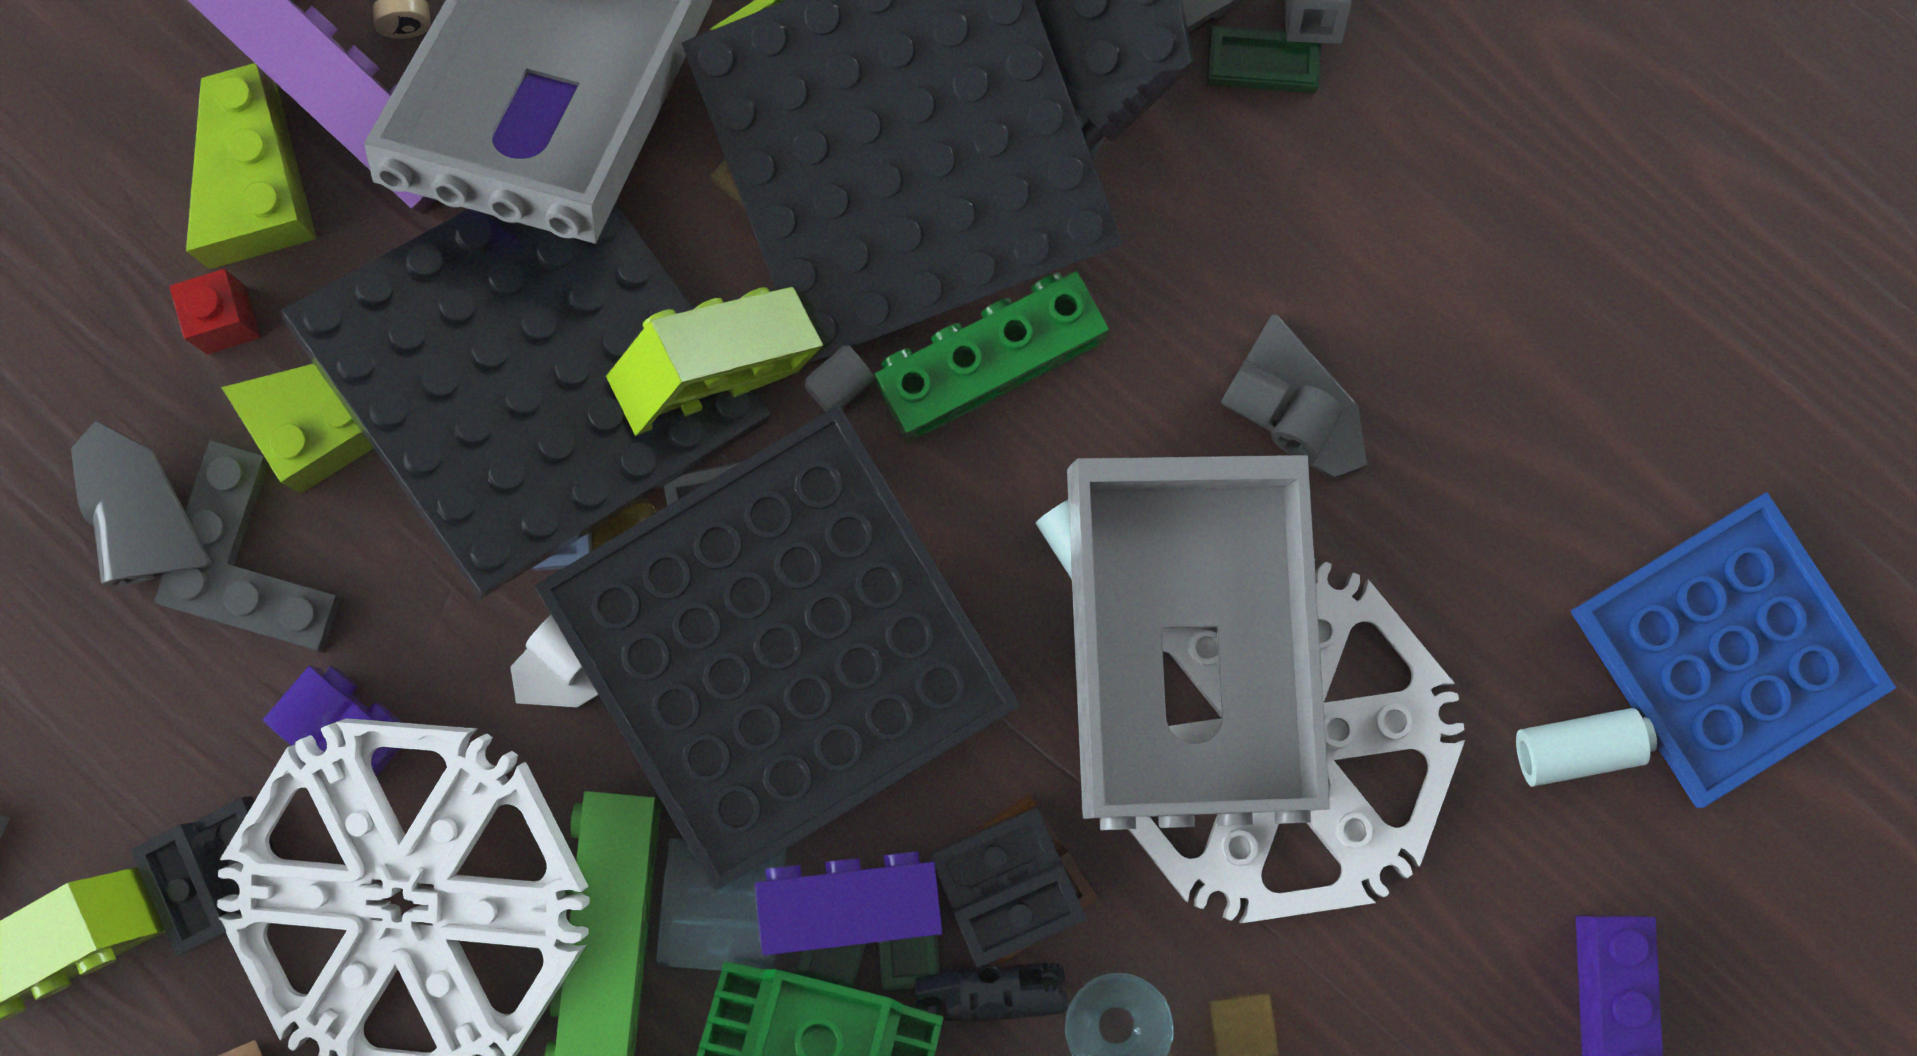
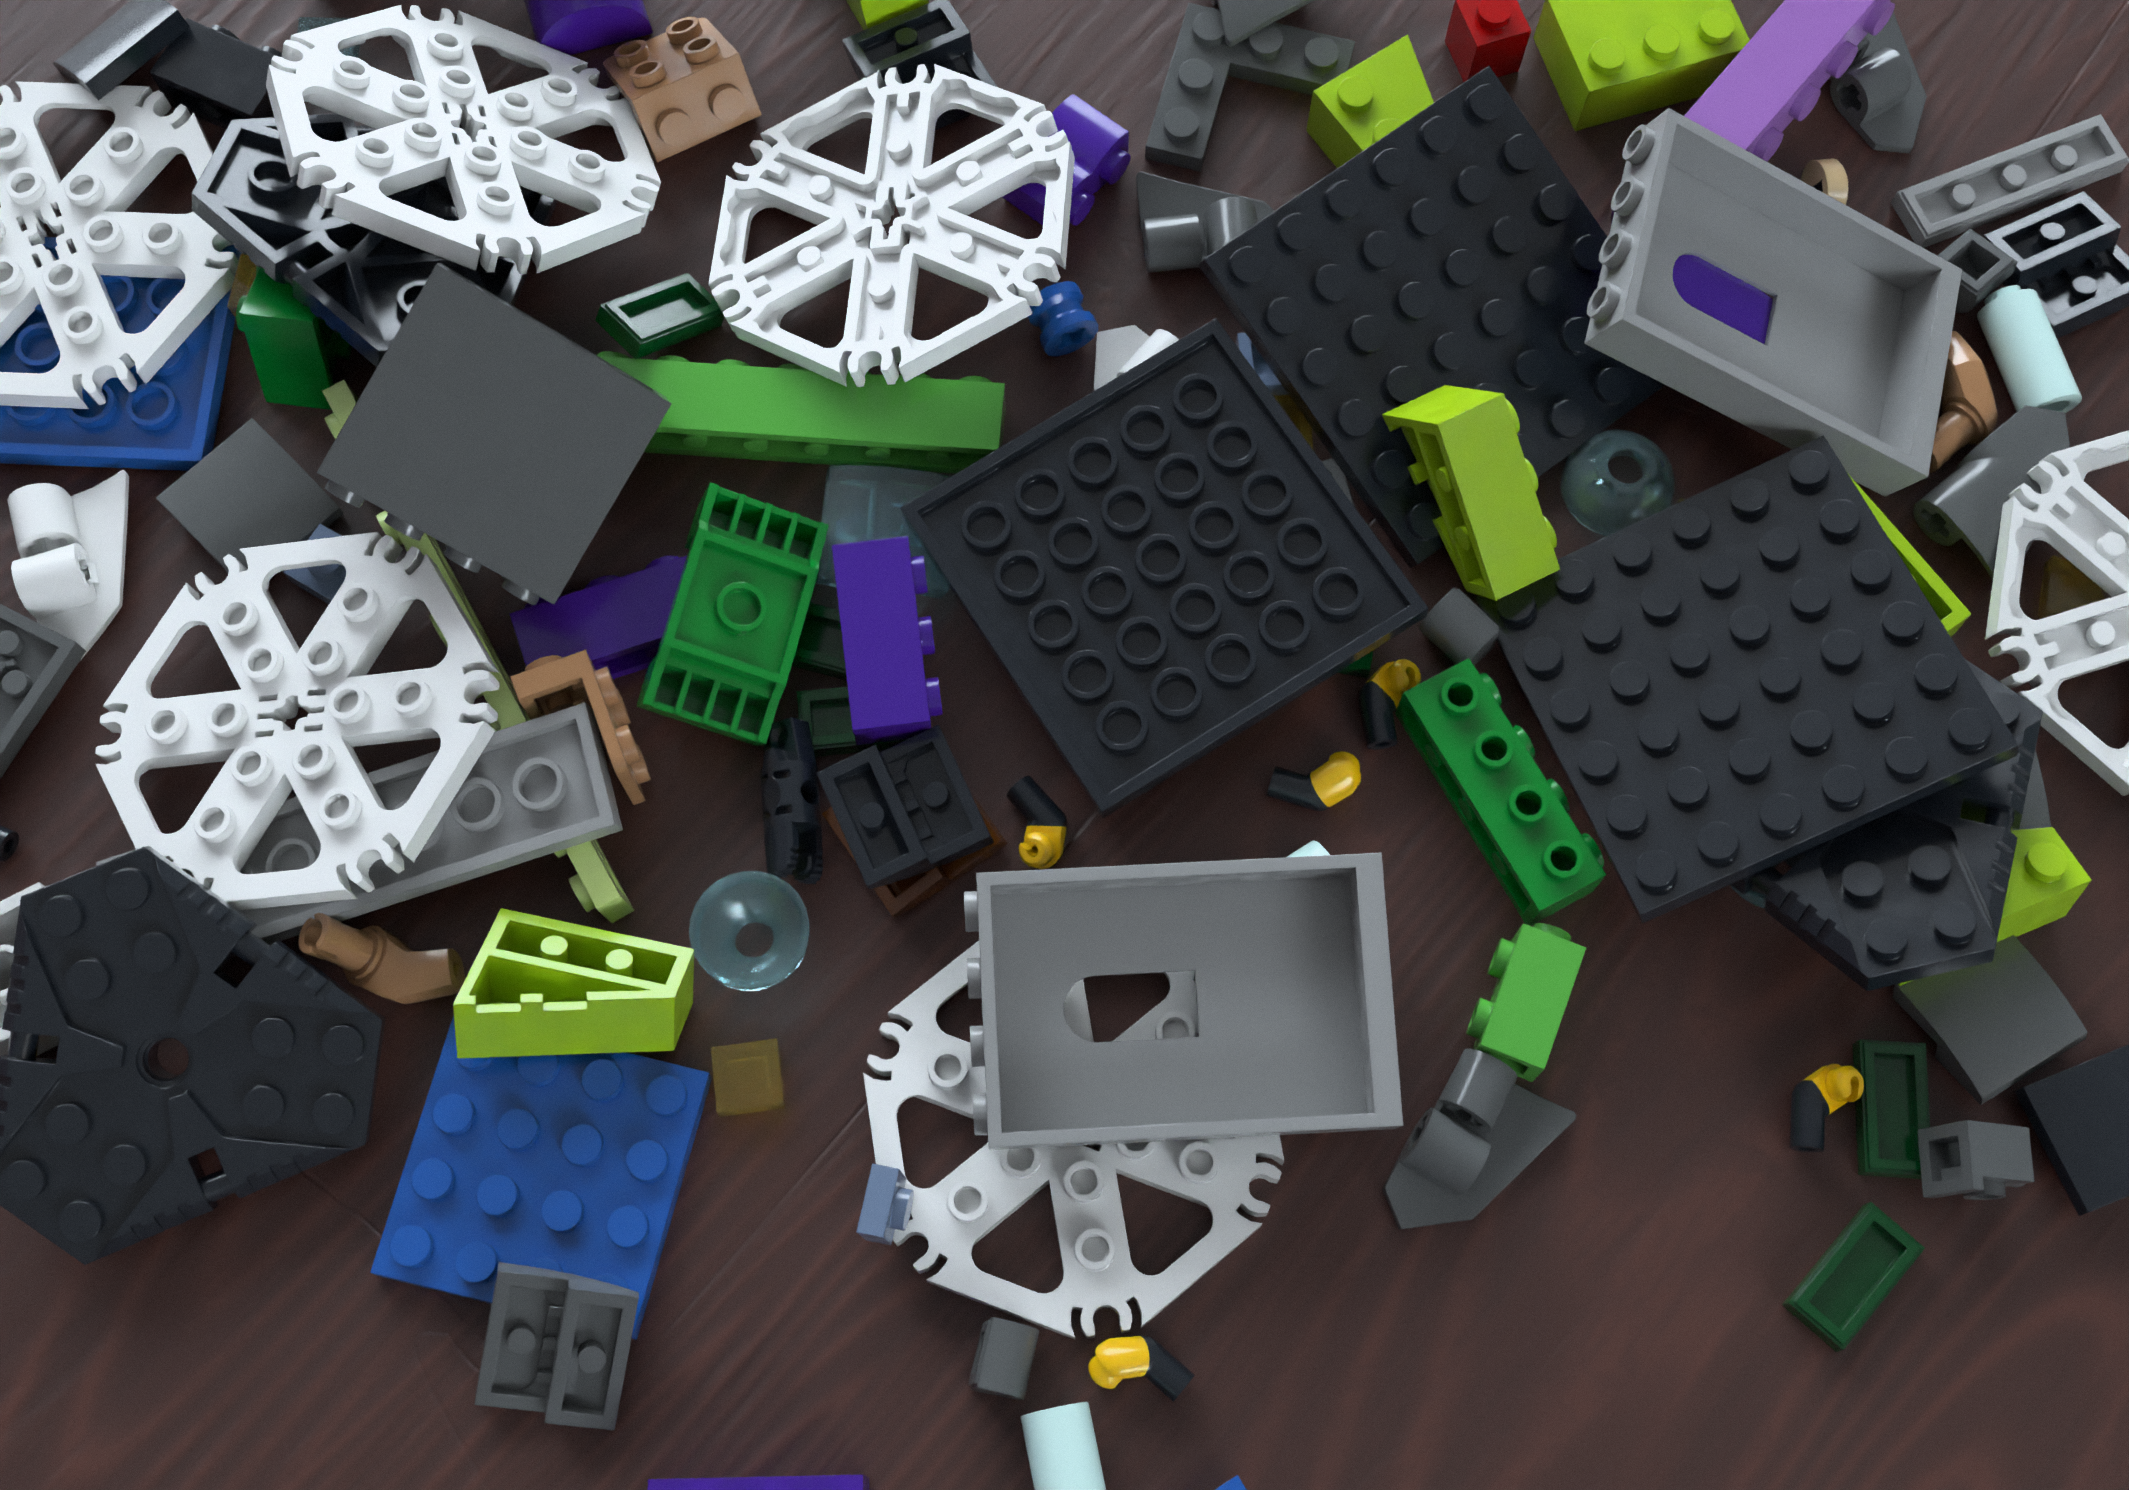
camera: 90 degrees right, 10 degrees down
(407, 597) = (1189, 221): none -> dark grey panel
(510, 732) = (1062, 319): none -> blue wheel
(706, 251) = (1600, 499): none -> clear light blue piece
(896, 453) = (1381, 698): none -> black arm
(982, 511) = (1319, 788): none -> arm
(1014, 759) = (1045, 824): none -> arm
(1177, 346) = (1528, 998): none -> bright green brick
(1257, 120) = (1817, 1098): none -> arm
(1367, 900) = (885, 1205): none -> sand blue plate
(1400, 106) = (1853, 1276): none -> dark green tile
(1479, 688) = (1138, 1357): none -> arm
(1485, 801) = (1003, 1358): none -> dark grey brick

